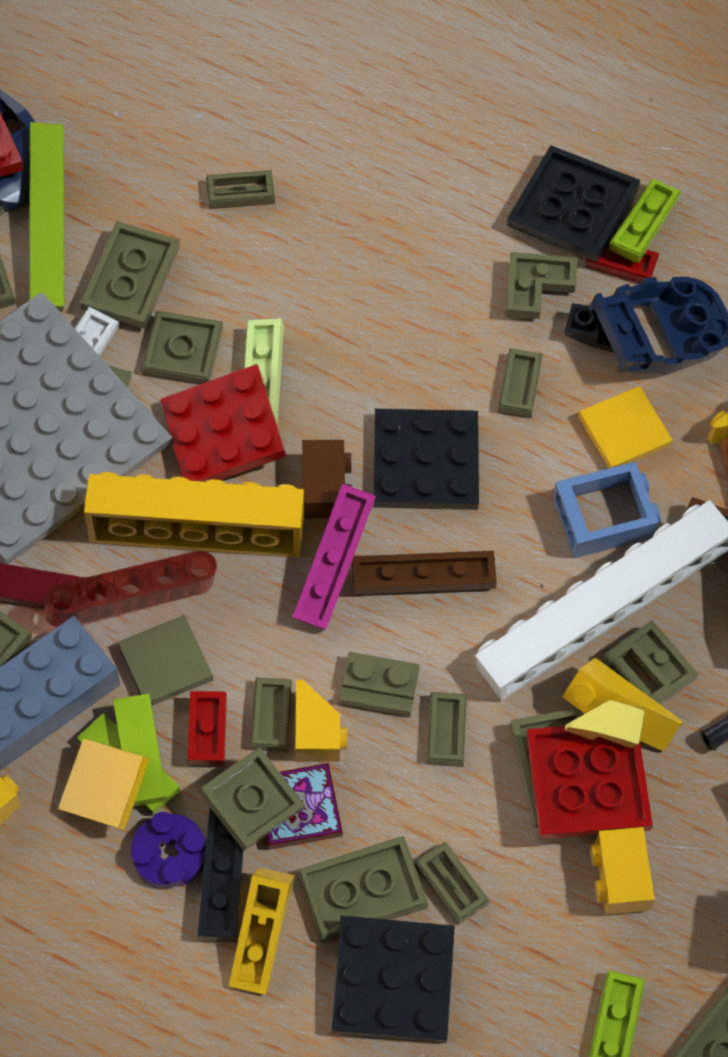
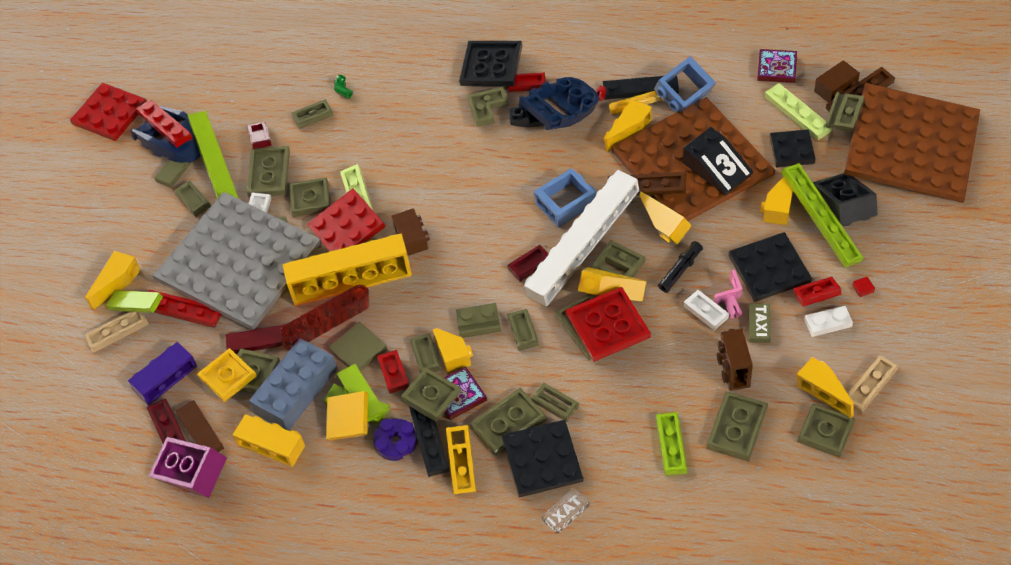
camera: 10 degrees left, 10 degrees down
(137, 201) = (259, 135): none -> tile
(304, 155) = (340, 87): none -> green arm
(333, 557) = (429, 265): dark pink plate -> none
(424, 572) = (480, 258): reddish brown plate -> none
(426, 459) = (460, 206): black plate -> none
(501, 608) = (527, 263): none -> dark red tile
(520, 383) = (496, 155): olive tile -> none
(612, 722) = (608, 289): light yellow slope -> none
(623, 871) = (644, 362): yellow brick -> none
(625, 428) = (559, 157): yellow tile -> none
(644, 220) = (531, 59): lime tile -> none

